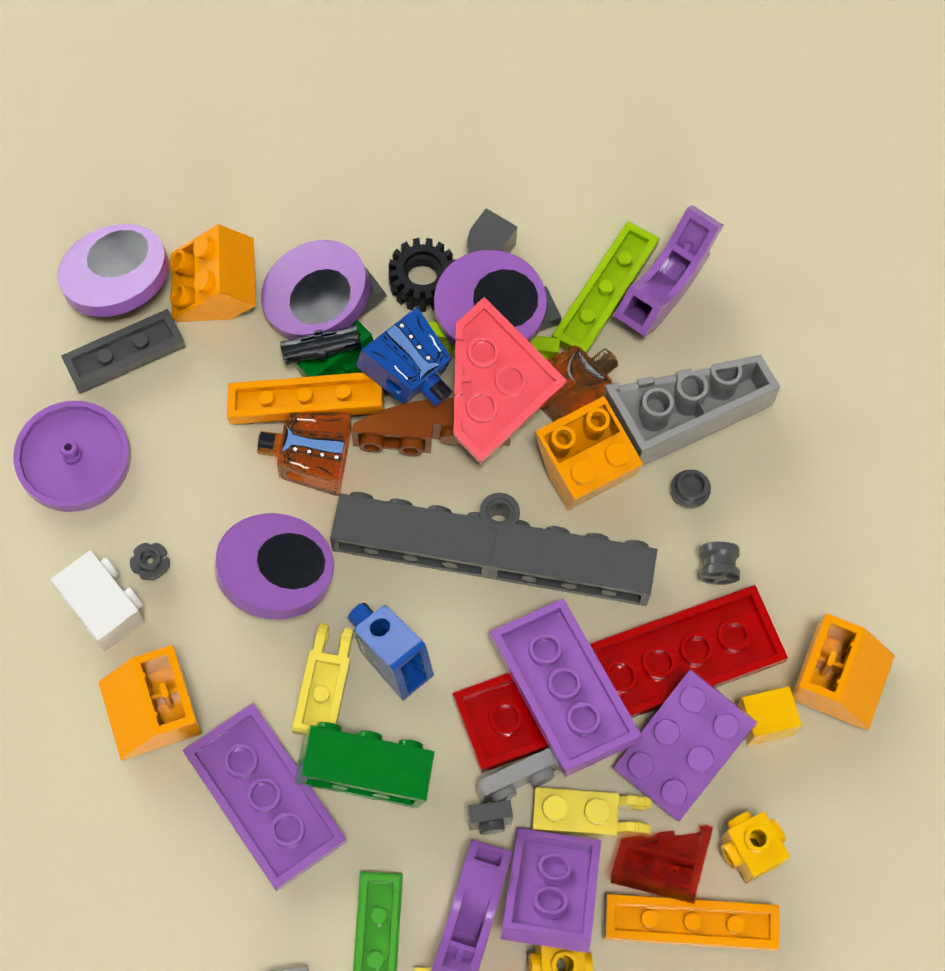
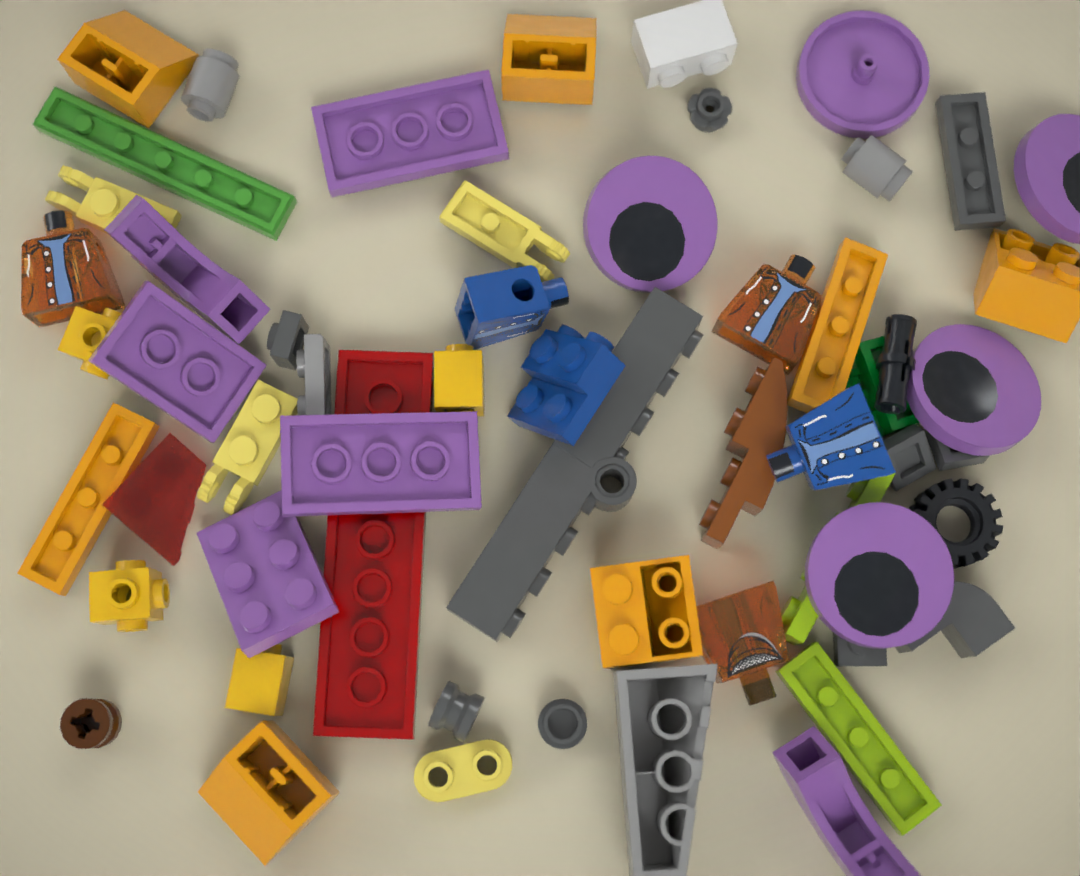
camera: 115 degrees right, 10 degrees up
(156, 415) = (875, 167): none -> light grey brick
(365, 765) = (391, 231): green brick -> none
(381, 317) = (909, 456): none -> dark grey plate
(438, 575) = (566, 383): none -> blue plate
(466, 662) = (459, 379): none -> yellow brick
(496, 380) = (770, 534): coral plate -> none
(758, 544) = (463, 770): none -> light yellow plate
(853, 838) = (102, 724): none -> reddish brown wheel

